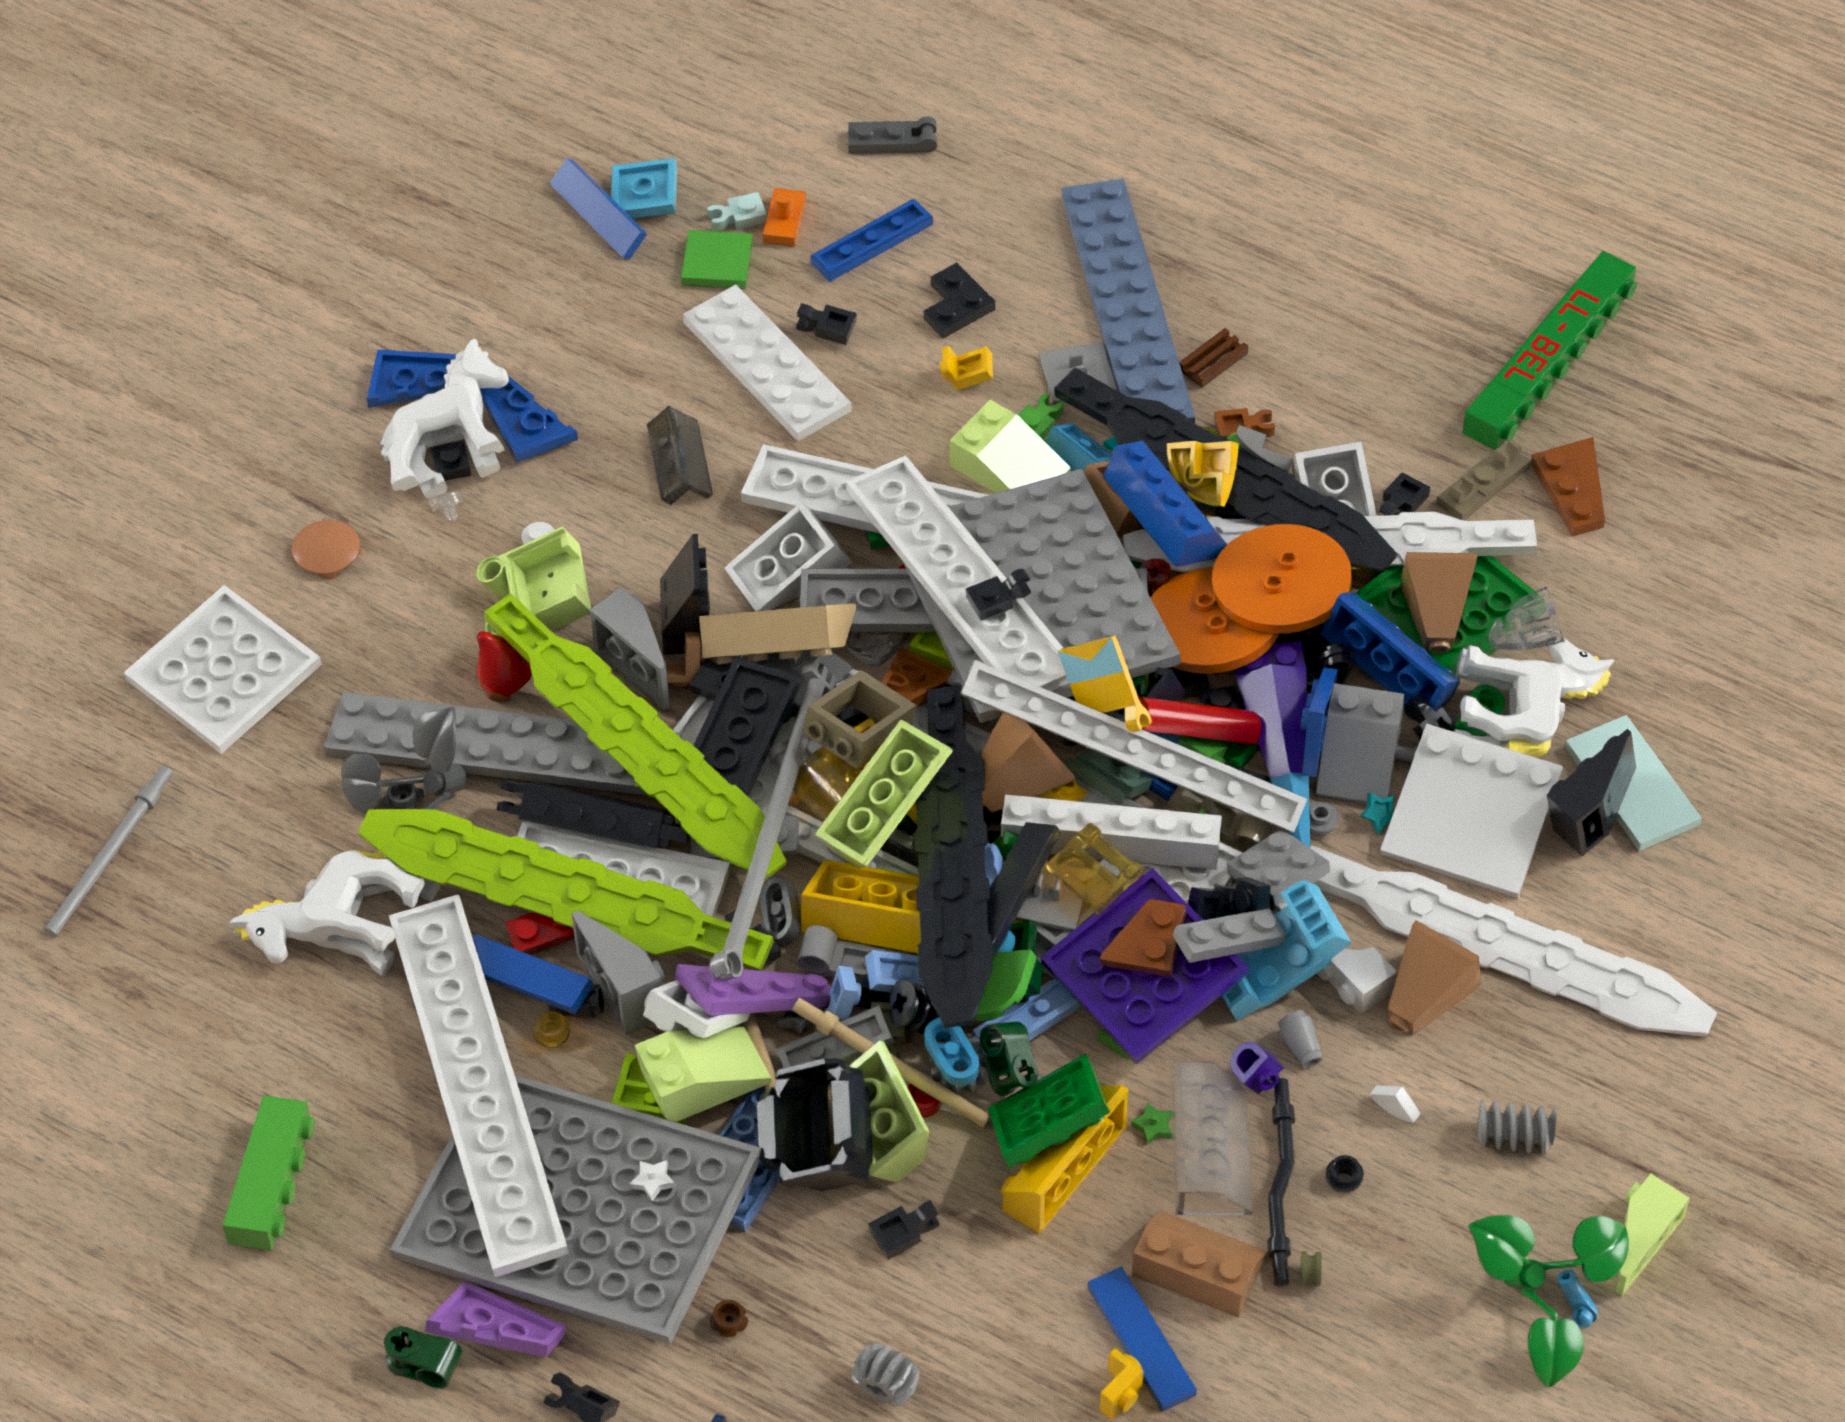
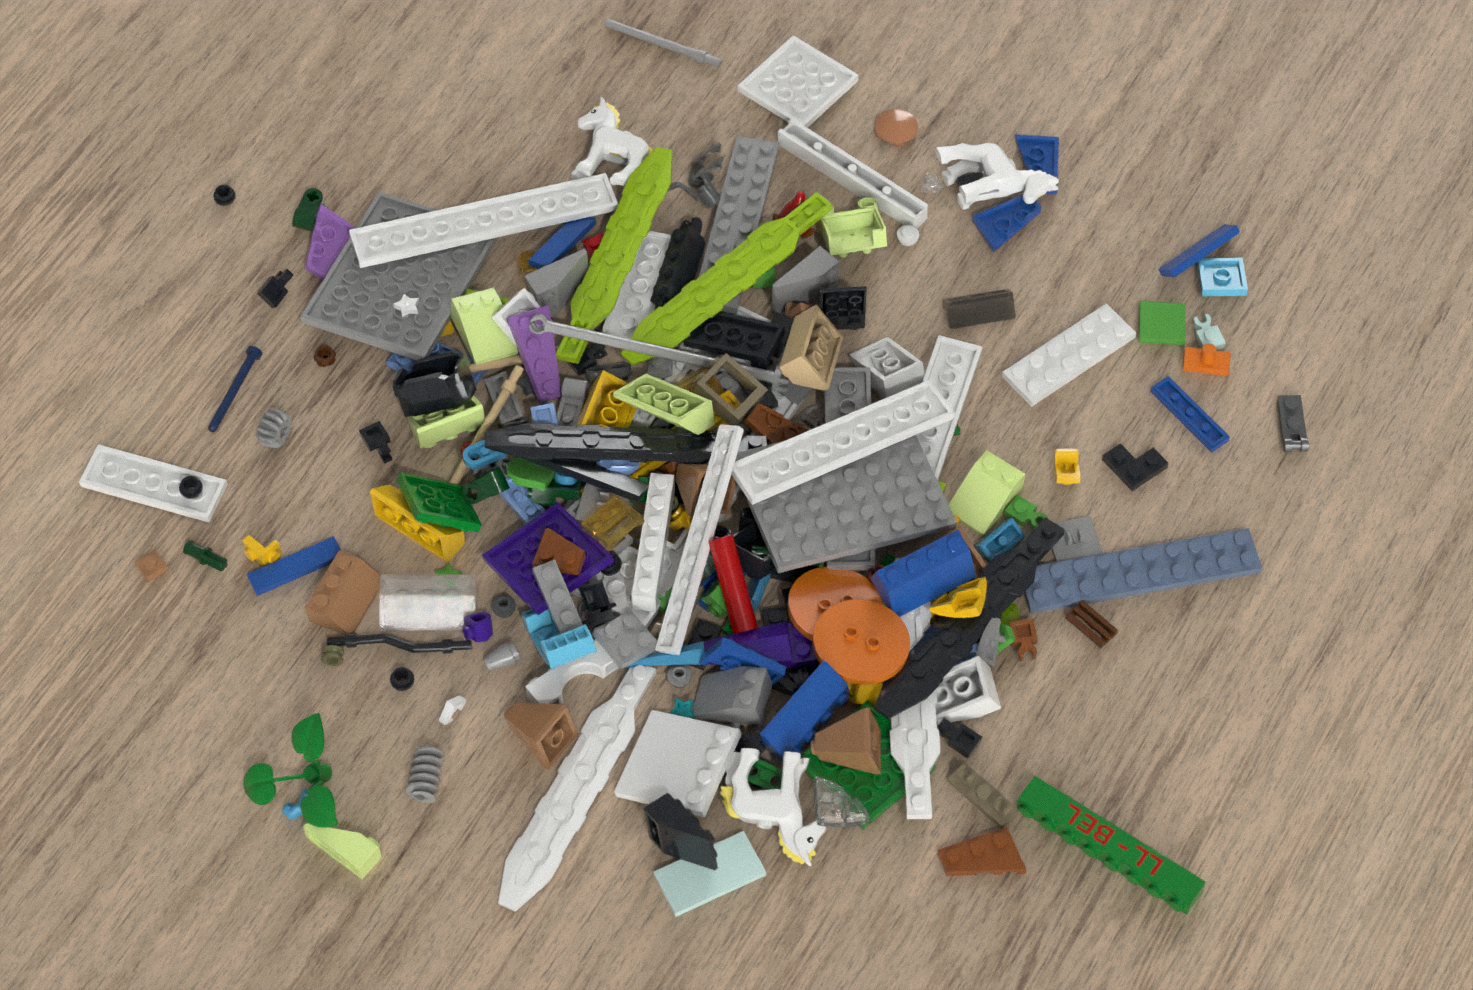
camera: 90 degrees right, 5 degrees up
(268, 1173) = (431, 131): bright green brick -> none
(415, 601) = (852, 174): none -> white tile
(830, 324) = (1103, 388): black plate -> none
(844, 993) = (532, 398): light blue plate -> none
(994, 596) = (815, 451): black plate -> none
(1103, 680) = (713, 526): yellow flag -> none
(1205, 1050) = (503, 612): none -> dark grey plate

